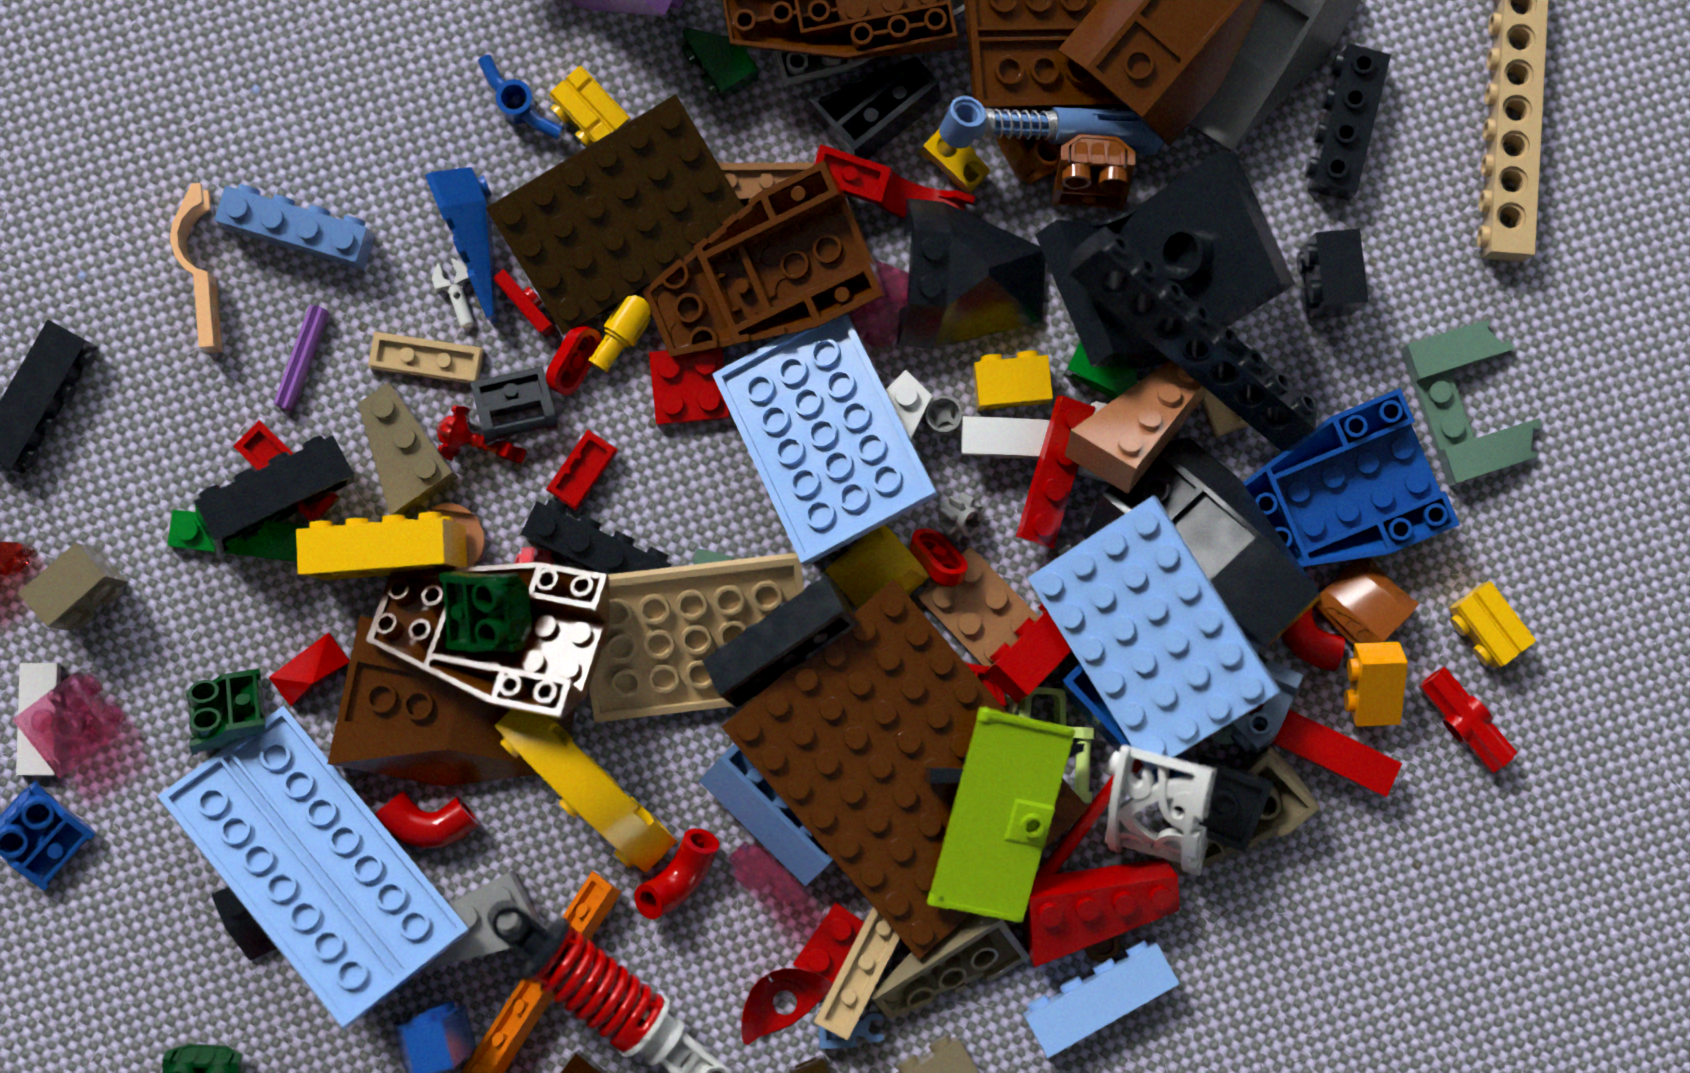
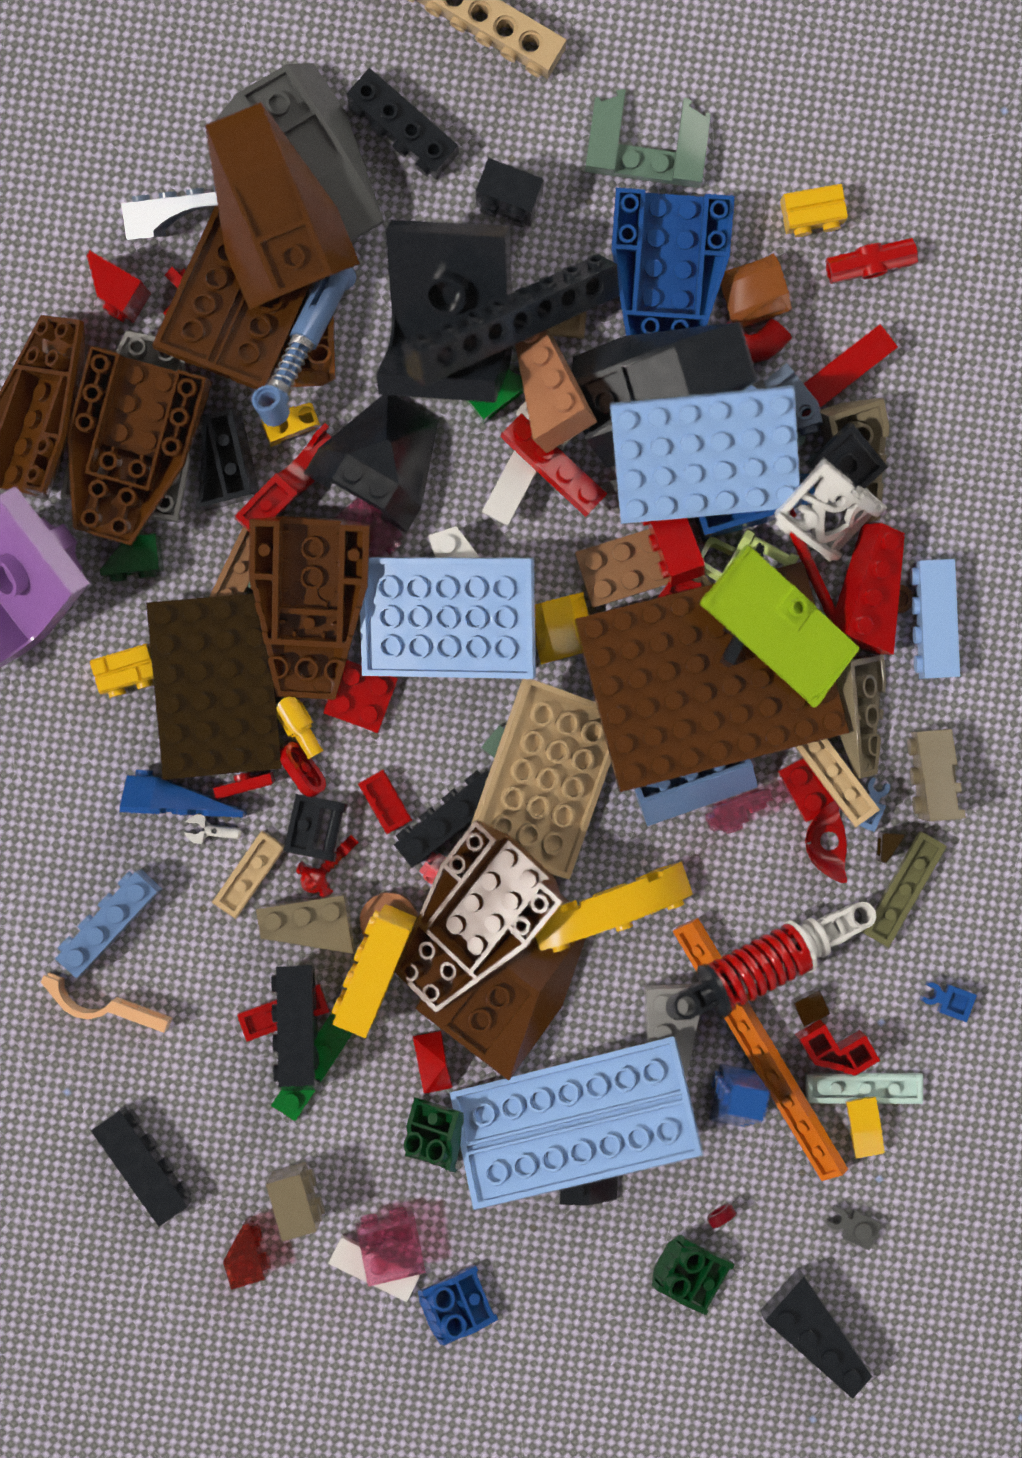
camera: 55 degrees left, 5 degrees up
(301, 358) = (205, 963): medium lavender axle -> none
(425, 828) = (587, 1031): red cylinder -> none
(486, 611) = (459, 918): dark green slope -> none
(509, 88) = (80, 720): blue piece -> none
(681, 875) = (707, 871): red cylinder -> none
(780, 641) = (580, 720): black brick -> none
(938, 557) = (572, 578): red plate -> none
(943, 410) = (474, 521): light grey wheel -> none
(960, 516) = (551, 548): light grey gear -> none
(1012, 381) = (472, 463): yellow brick -> none
(1094, 172) = (351, 328): dark orange slope -> none
(1376, 684) = (816, 313): light orange brick -> none

